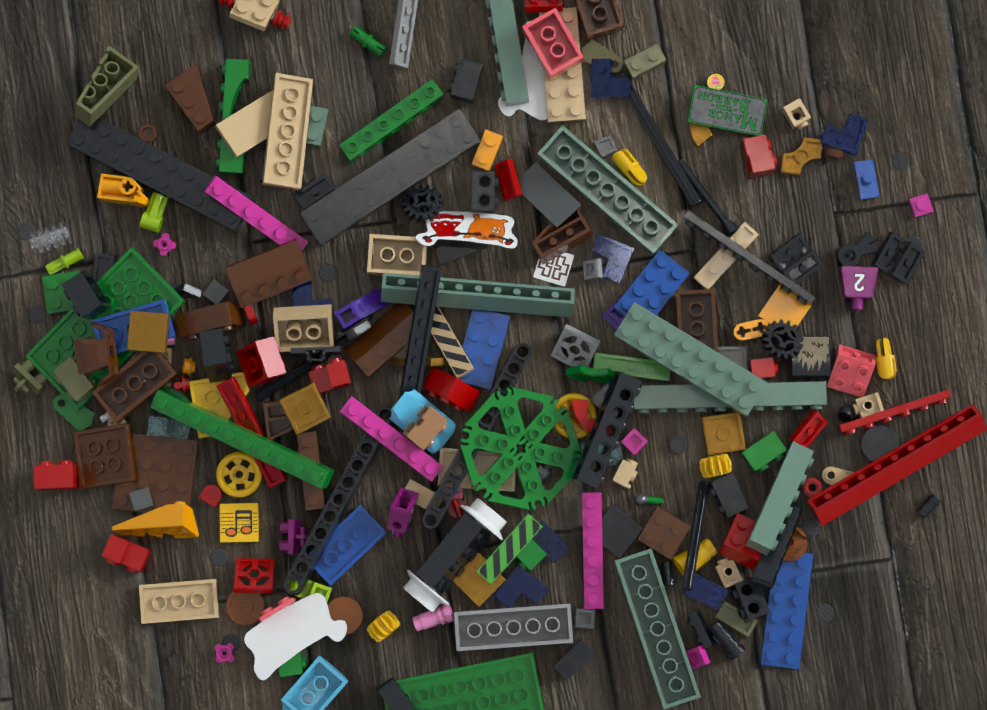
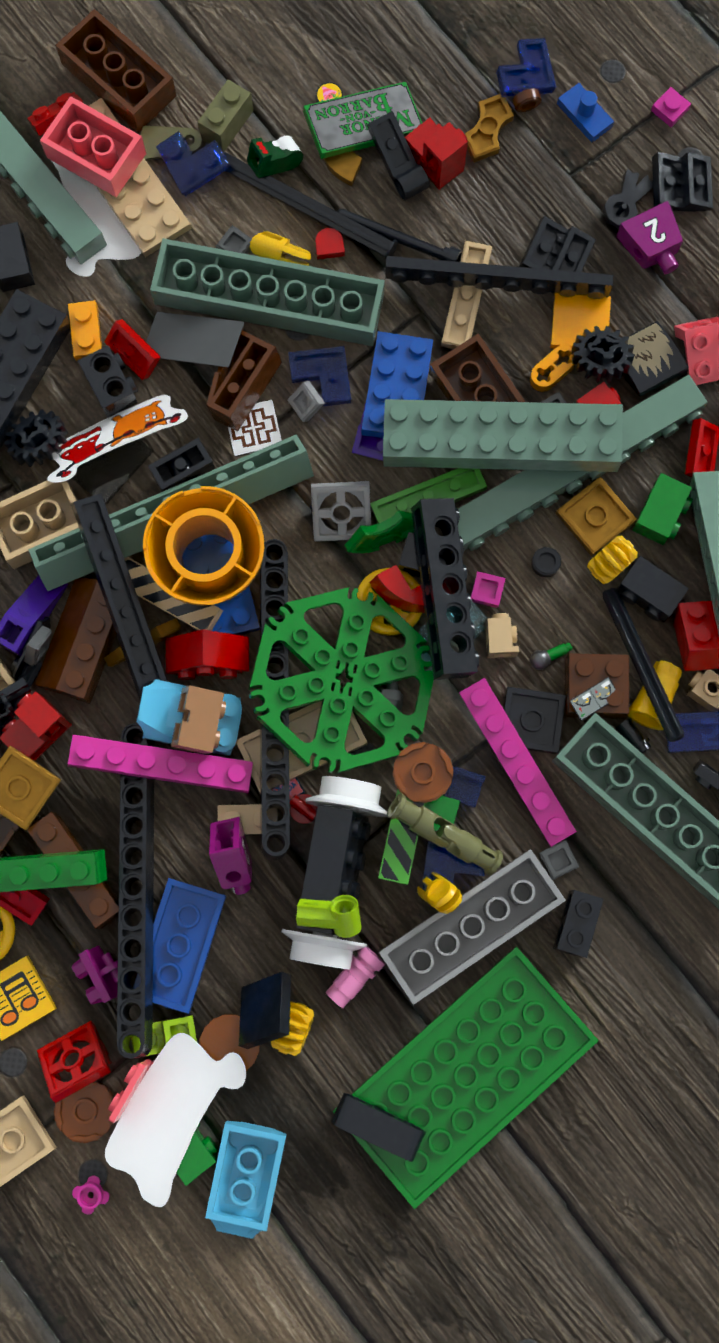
camera: 30 degrees left, 5 degrees down
(373, 608) = (265, 1010): none -> black tile
(443, 579) = (339, 914): none -> lime piece
(474, 584) = (387, 898): pearl gold tile -> none
(478, 306) = (197, 514): none -> light orange cone
(497, 270) = (181, 465): none -> black brick
(505, 599) = (440, 894): none -> yellow arm
(531, 576) = (456, 841): none -> olive piece
(534, 527) = (423, 772): none -> dark orange tile
(654, 540) = (593, 698): none -> light grey sticker
(658, 105) = (273, 156): none -> dark green leg
(662, 177) = (329, 244): none -> red tile
(733, 147) = (397, 156): none -> black plate
(796, 107) = (452, 77): tan brick -> none

